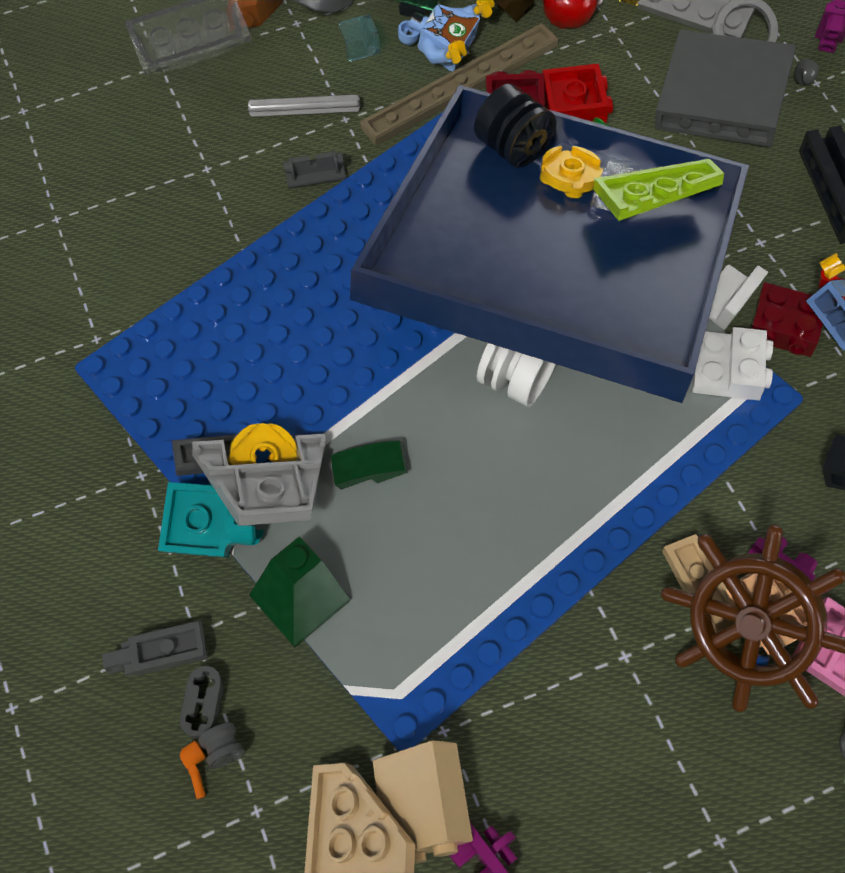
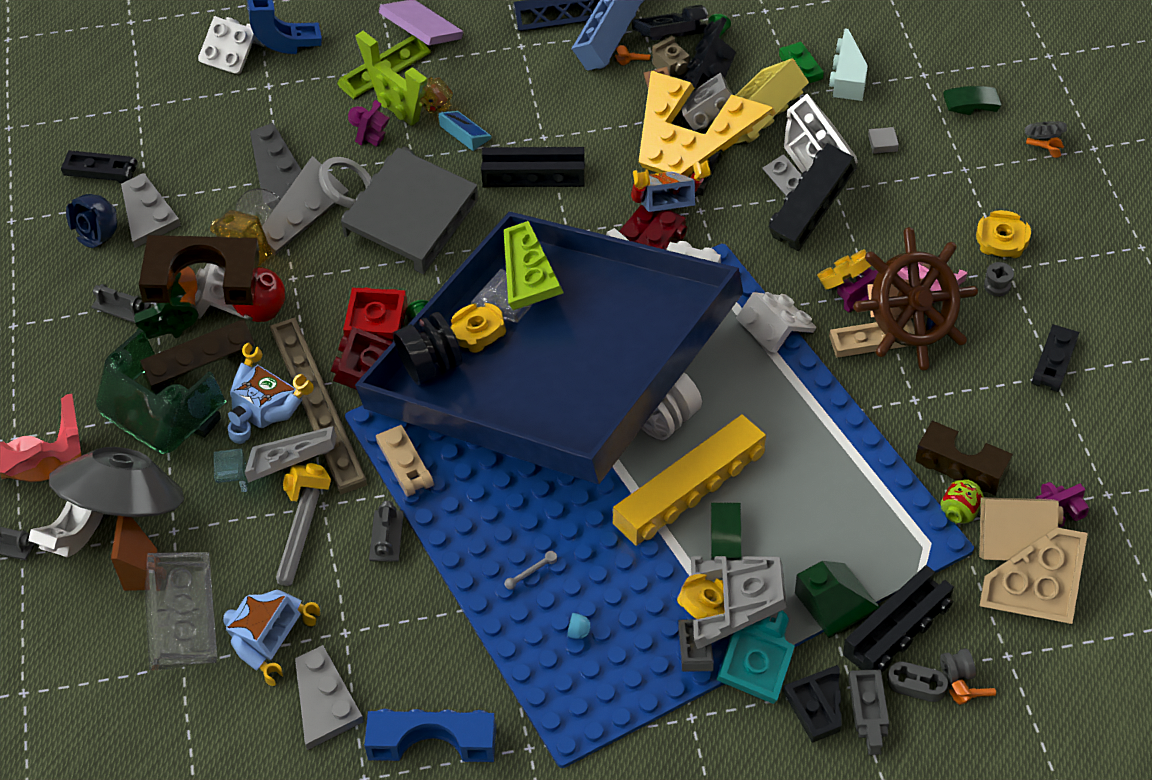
camera: 80 degrees left, 10 degrees down
(94, 281) = (394, 732): none -> blue arch
(133, 168) = (324, 698): none -> light grey wing
(160, 595) = (817, 703): none -> black wing
(190, 99) = (263, 624): none -> light blue torso
(220, 343) = (578, 627): none -> medium azure hinge
(276, 670) = (898, 621): none -> black brick
(305, 306) = (550, 558): none -> light grey hinge
(361, 91) = (305, 476): none -> yellow bracket
(384, 67) = (289, 451): none -> light grey wing
(393, 162) = (404, 460): none -> tan plate
(427, 415) = (689, 480): none -> yellow brick
(466, 726) = (962, 501): none -> lime head
(522, 755) = (939, 452): none -> dark brown arch
(696, 469) = (773, 318): none -> white bracket
(748, 839) = (1055, 357): none -> black plate
(796, 538) = (844, 269): none -> yellow plate

